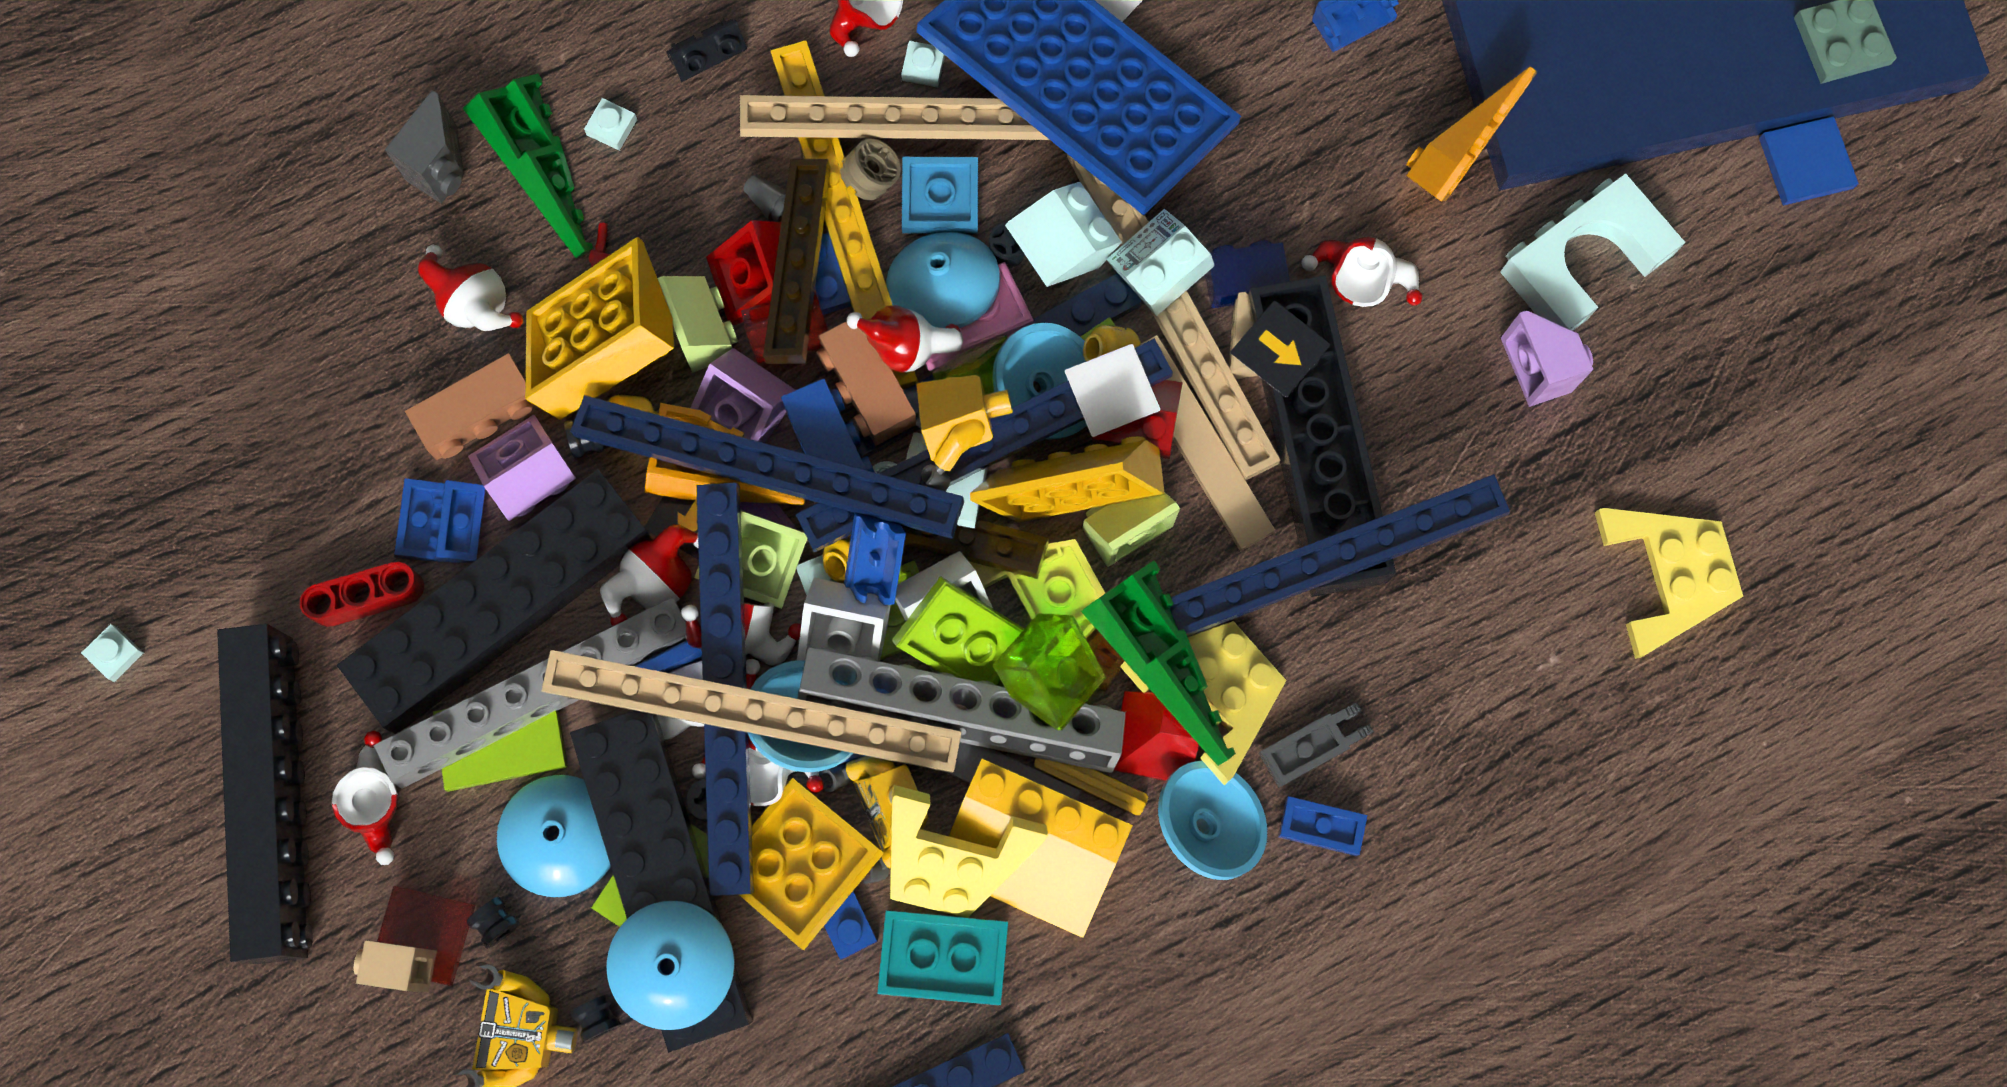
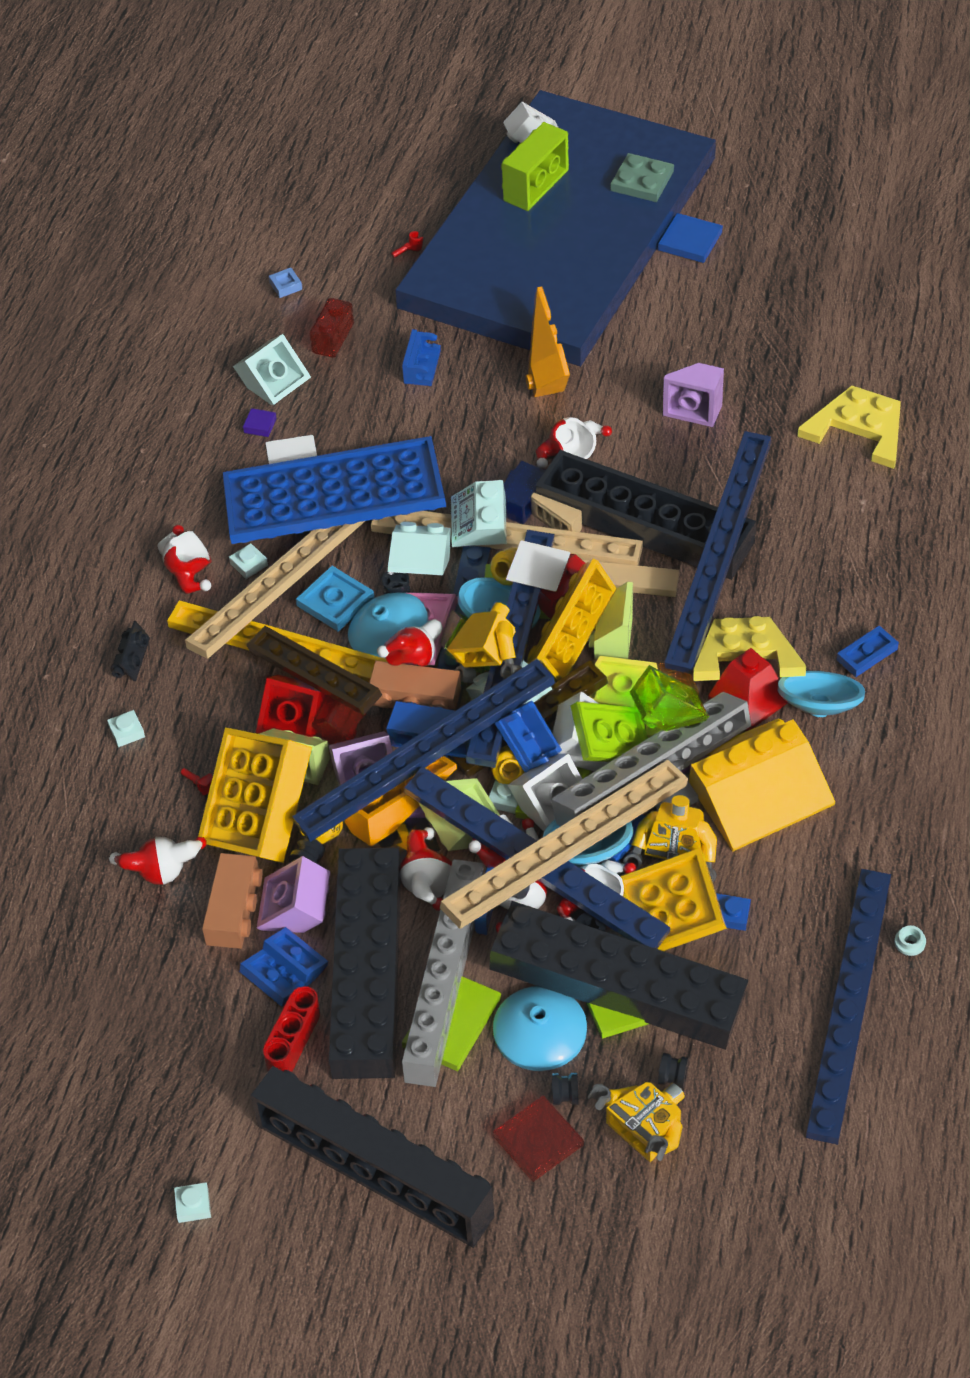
camera: 45 degrees left, 25 degrees down
(368, 800) = (428, 1102): white piece -> none
(394, 966) = (551, 1140): tan brick -> none
(429, 150) = (56, 816): dark grey slope -> none
(520, 133) = (90, 774): green wedge -> none
(701, 961) = (675, 1002): medium azure dish -> none
(766, 196) = (254, 676): dark grey cone -> none
(870, 169) = (288, 615): dark tan wheel -> none
(943, 958) = (789, 873): teal plate -> none
(948, 871) = (741, 828): light yellow wing -> none
(1144, 633) = (700, 646): green wedge -> none
(1280, 348) = (582, 492): black sticker -> none
(1311, 746) = (817, 629): dark grey hinge -> none
(1615, 212) = (647, 323): light aqua arch -> none

